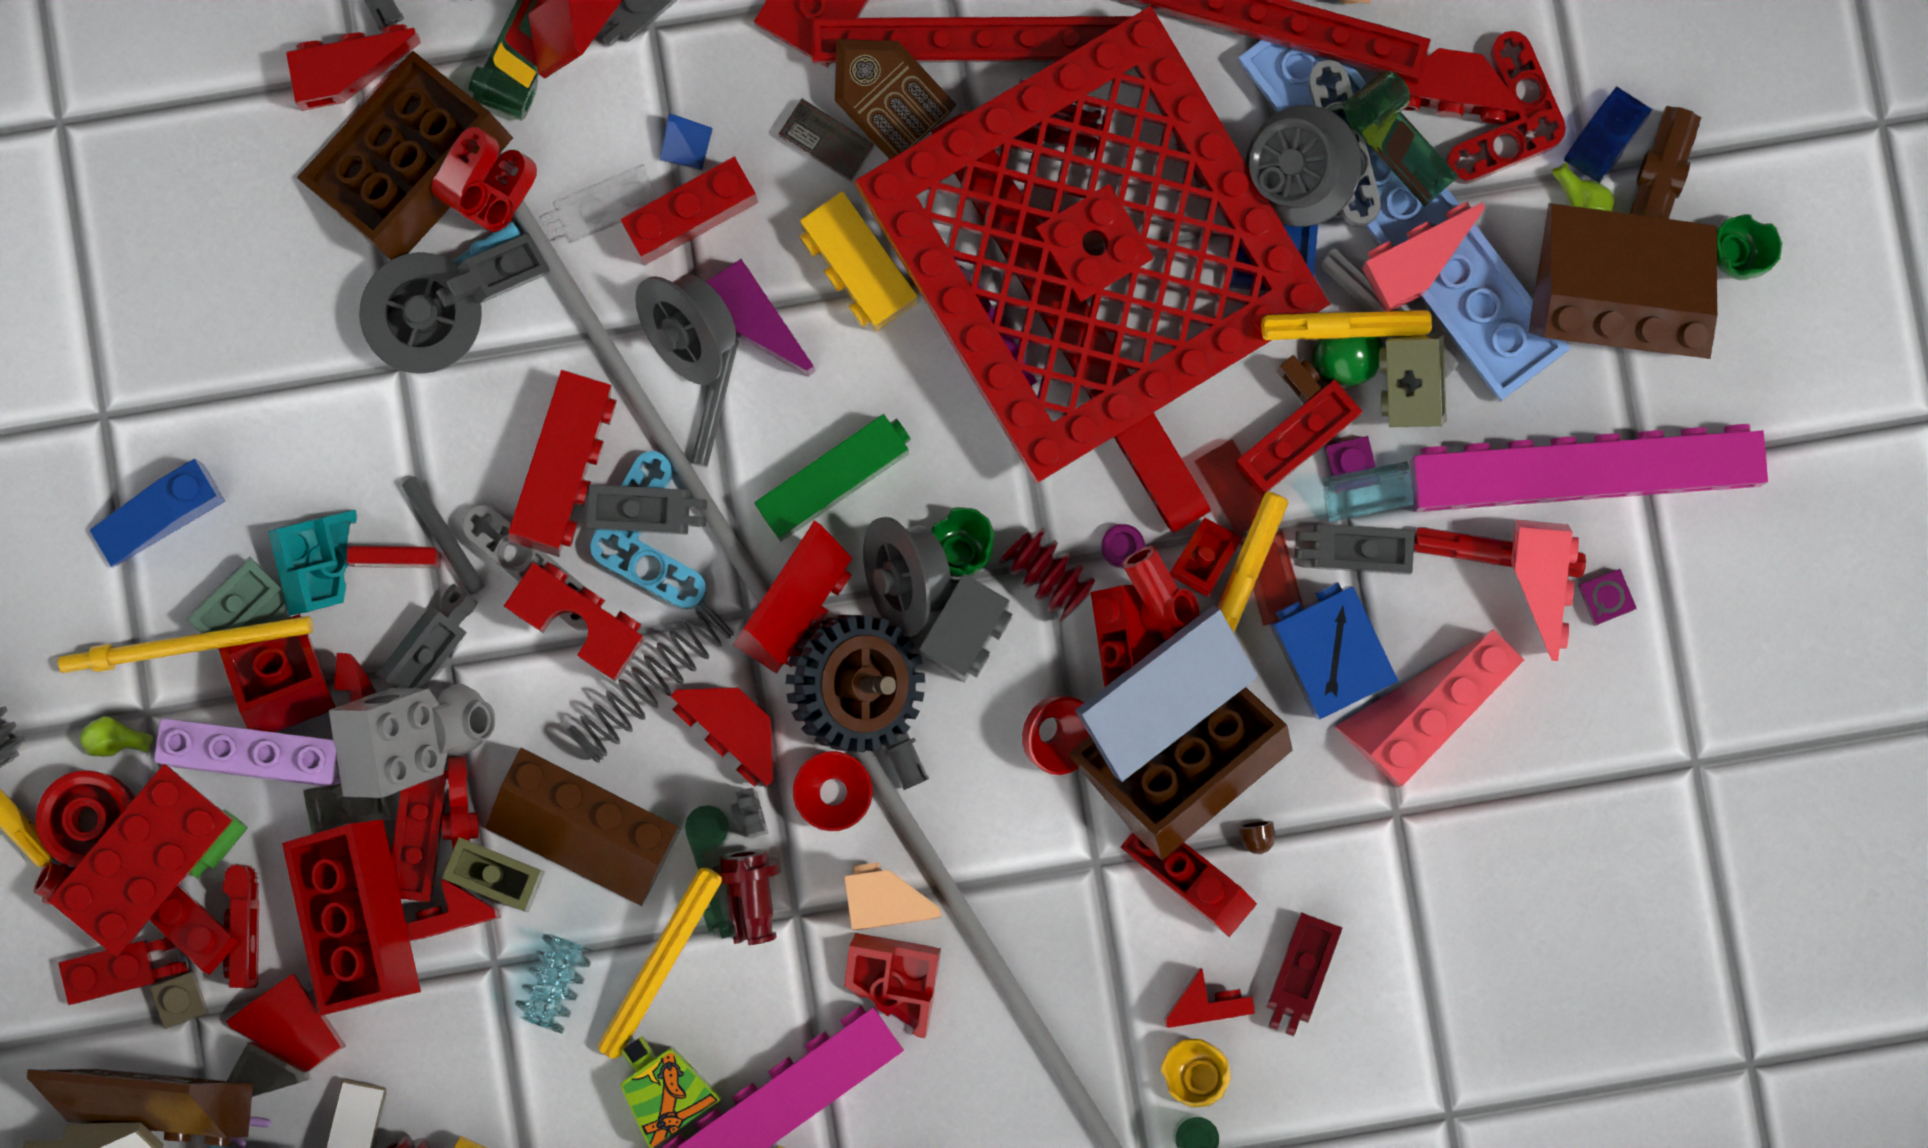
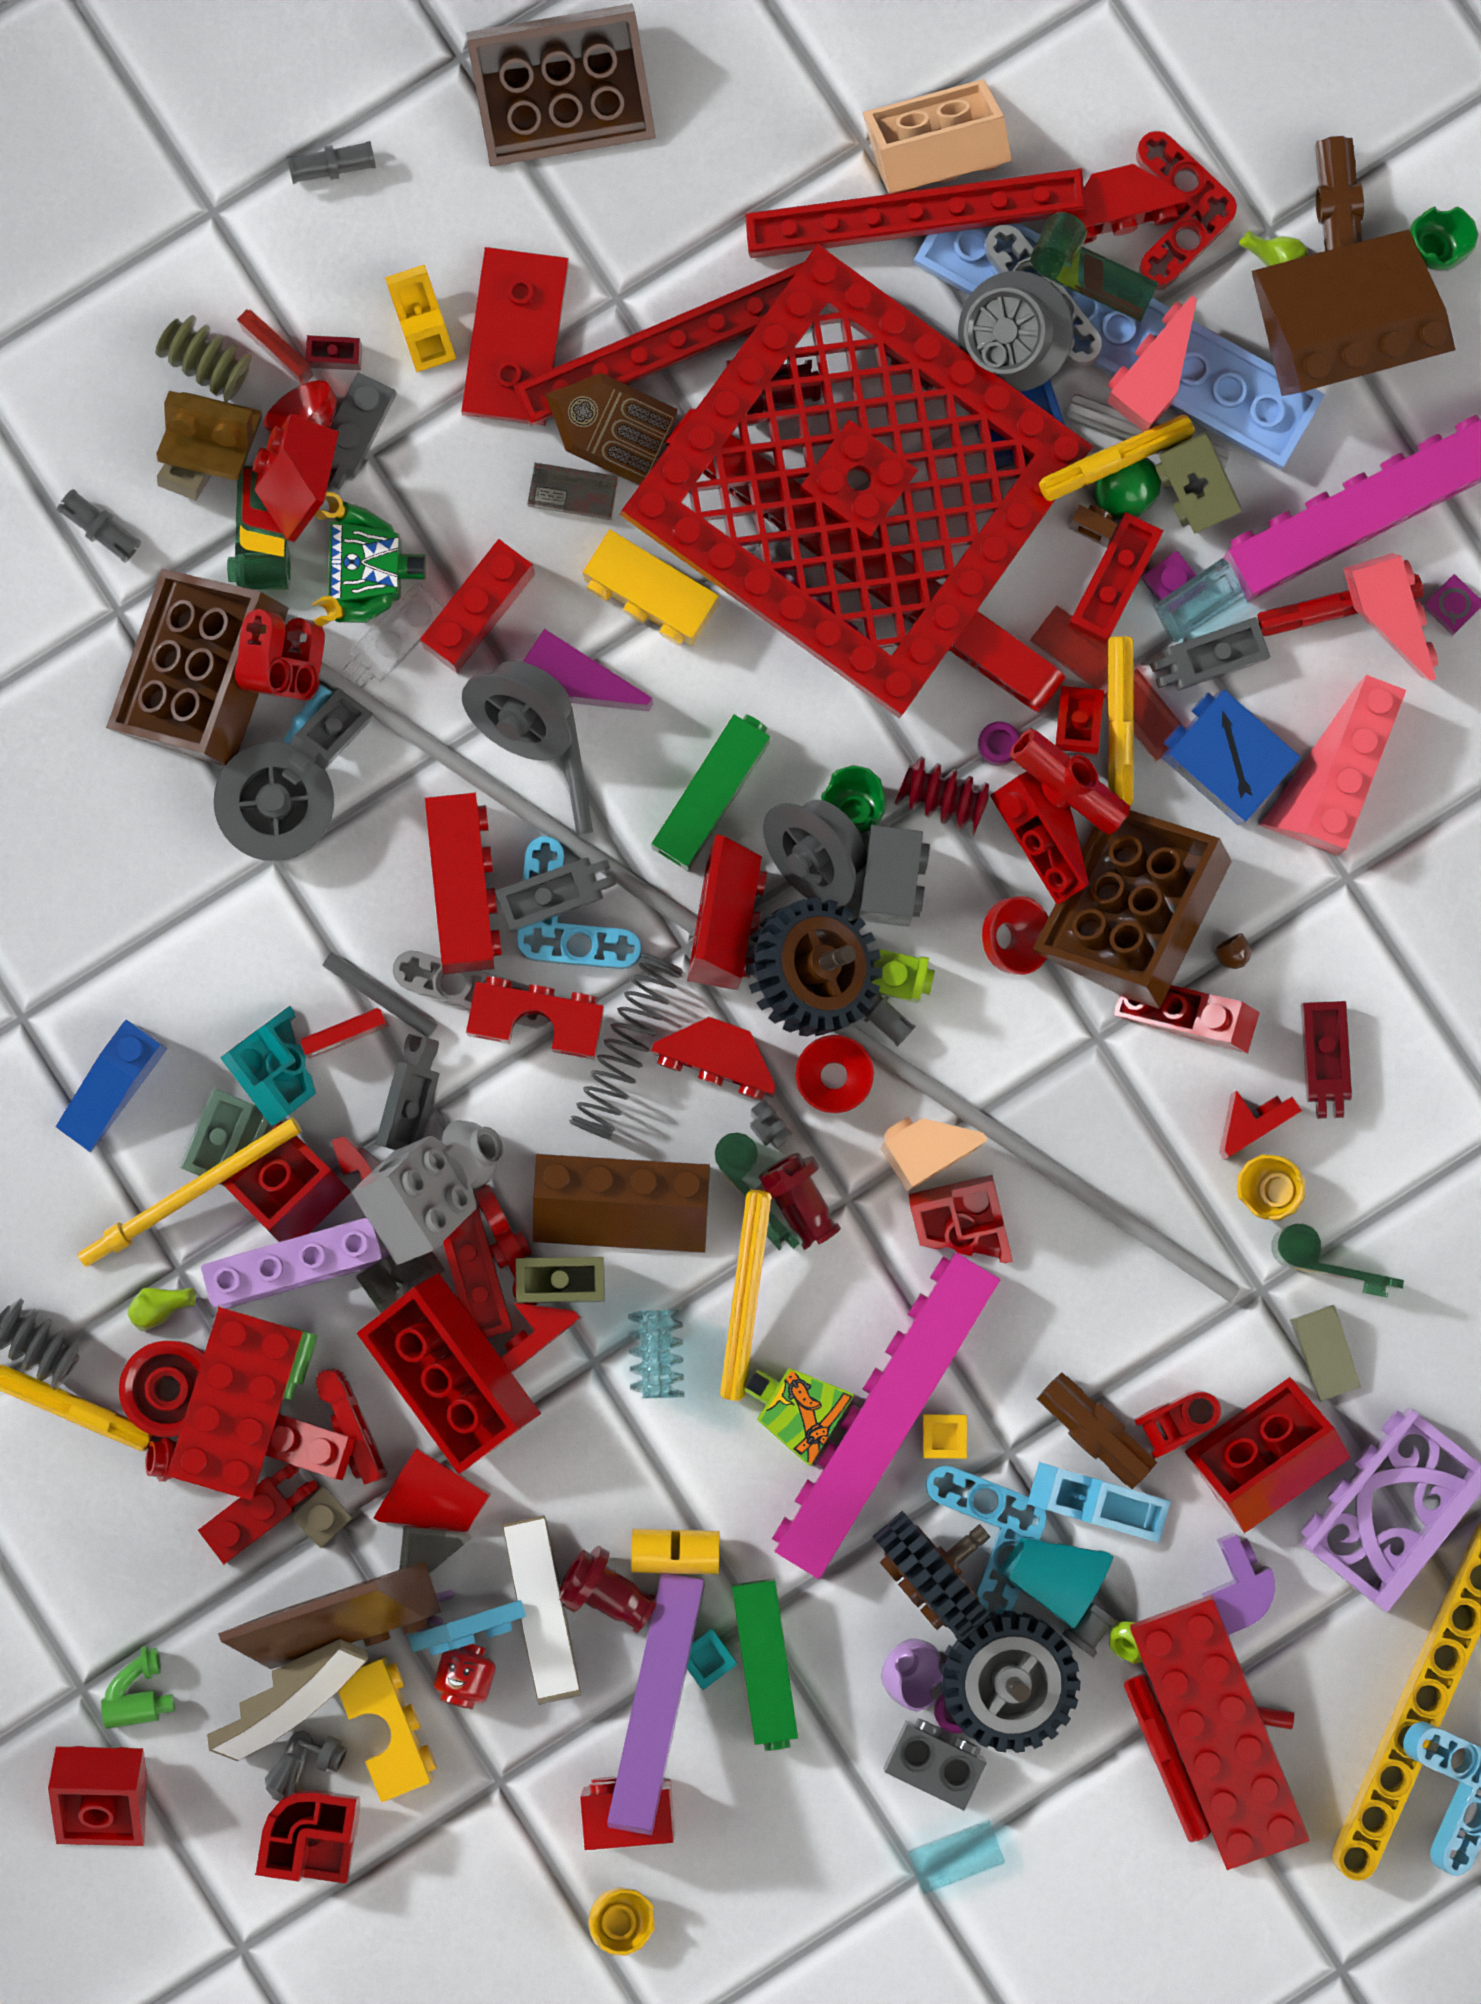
camera: 20 degrees left, 0 degrees up
(341, 69) = (103, 613): red slope -> none
(600, 126) = (363, 564): none -> torso
(685, 142) = (446, 547): blue slope -> none
(938, 726) = (904, 976): none -> lime bracket
(1167, 693) = (1100, 855): tile -> none
(1607, 134) = (1275, 189): clear blue slope -> none

